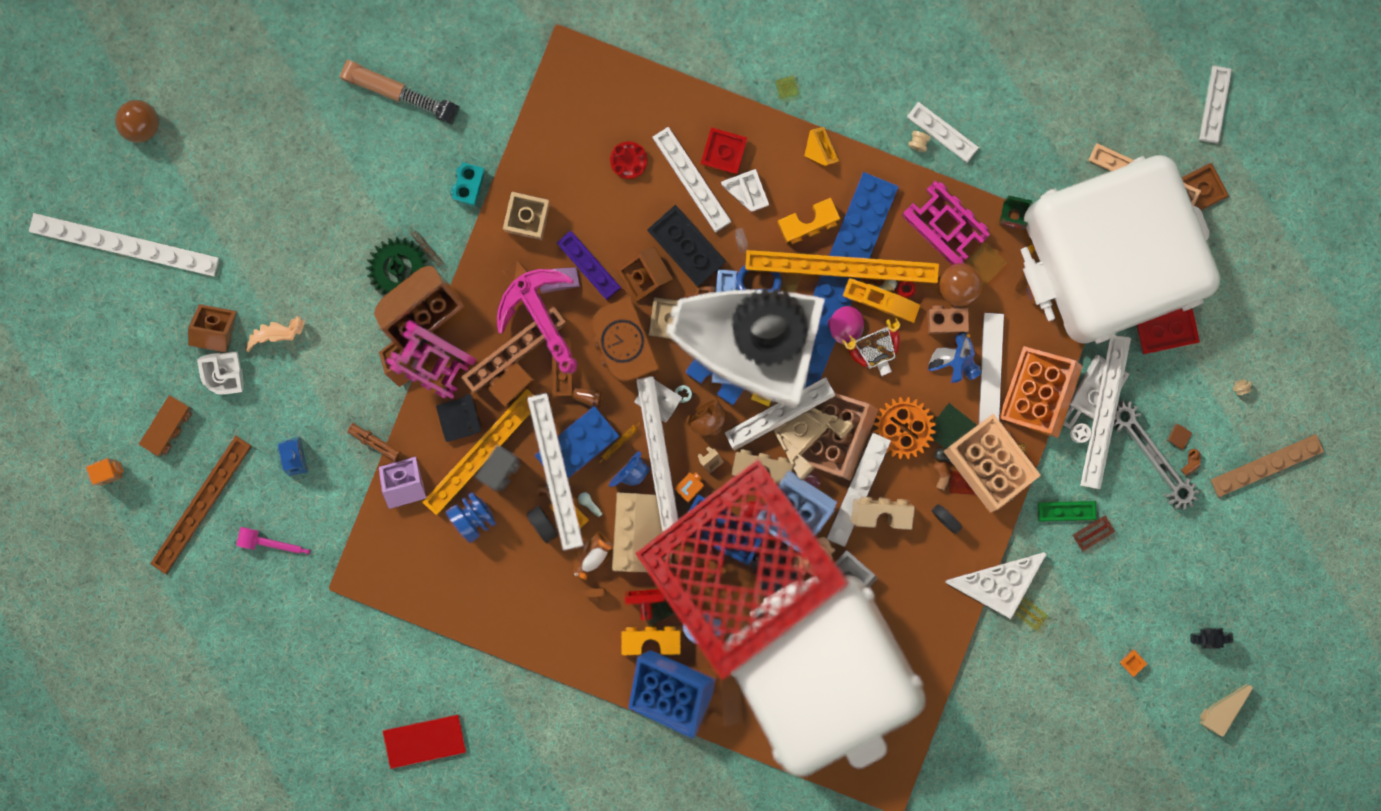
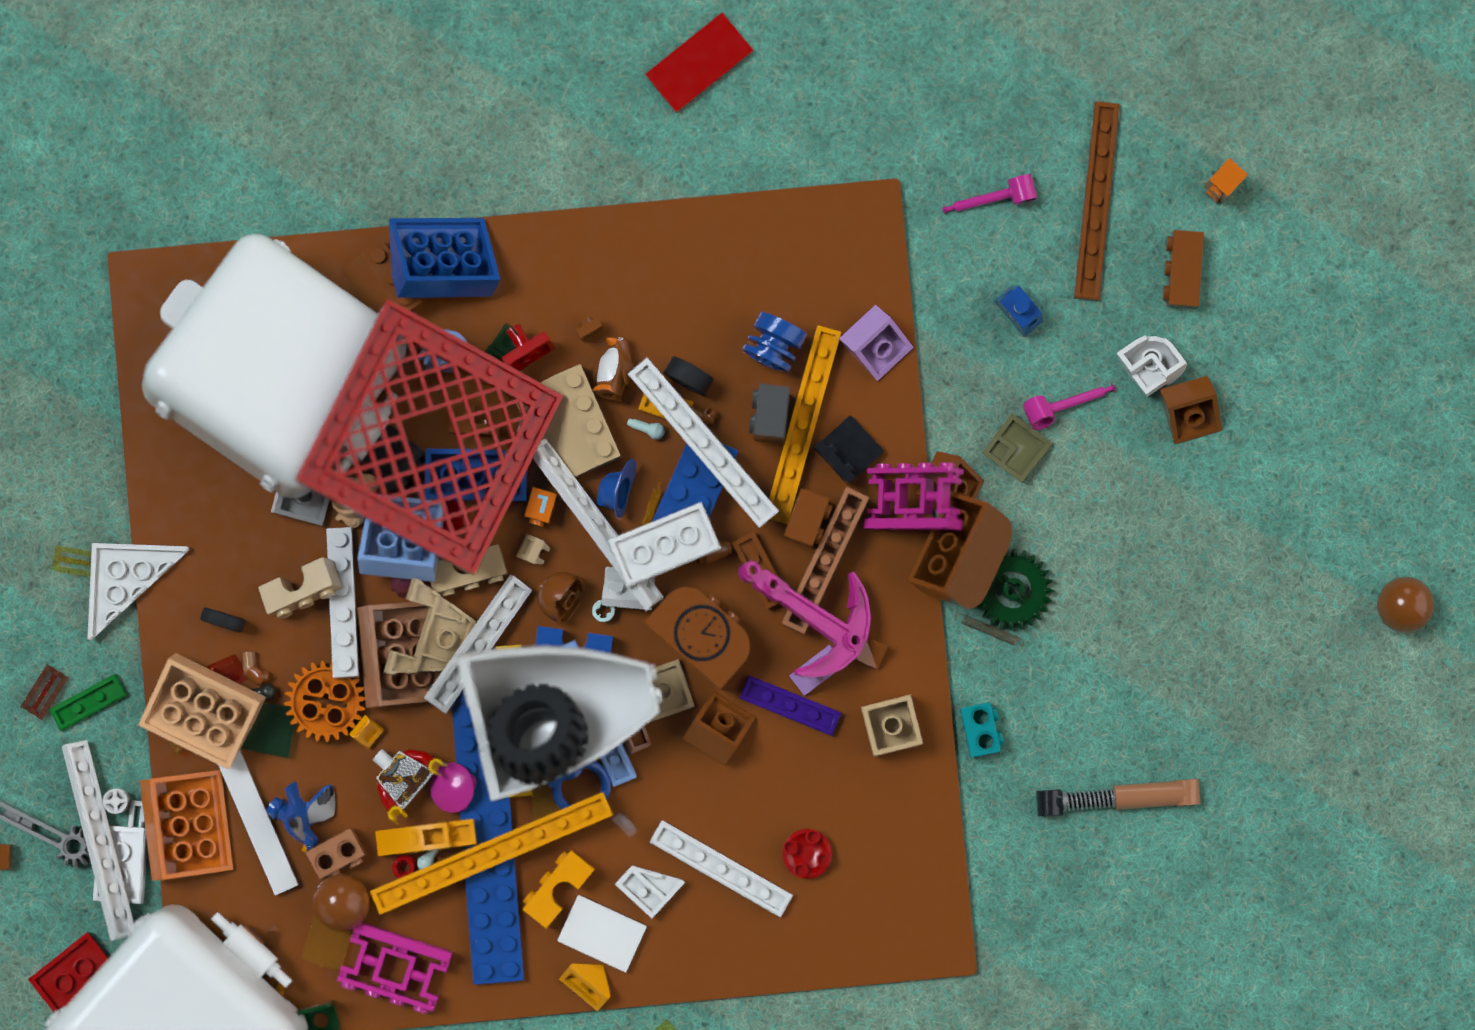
camera: 155 degrees right, 0 degrees up
(124, 244) = (1345, 454): white plate -> none
(275, 332) = (1114, 441): light nougat plant -> none
(314, 377) = (1041, 412): none -> dark pink piece
(344, 362) = (1017, 448): none -> olive plate
(368, 438) = (933, 373): dark orange pin -> none
(617, 414) = (664, 544): none -> white tile
(668, 639) = (515, 299): light orange arch -> none
(686, 246) = (687, 786): black plate -> none
(723, 151) = (700, 921): red plate -> none
(794, 176) = (602, 933): none -> white tile
(886, 393) = (366, 731): none -> light orange tile

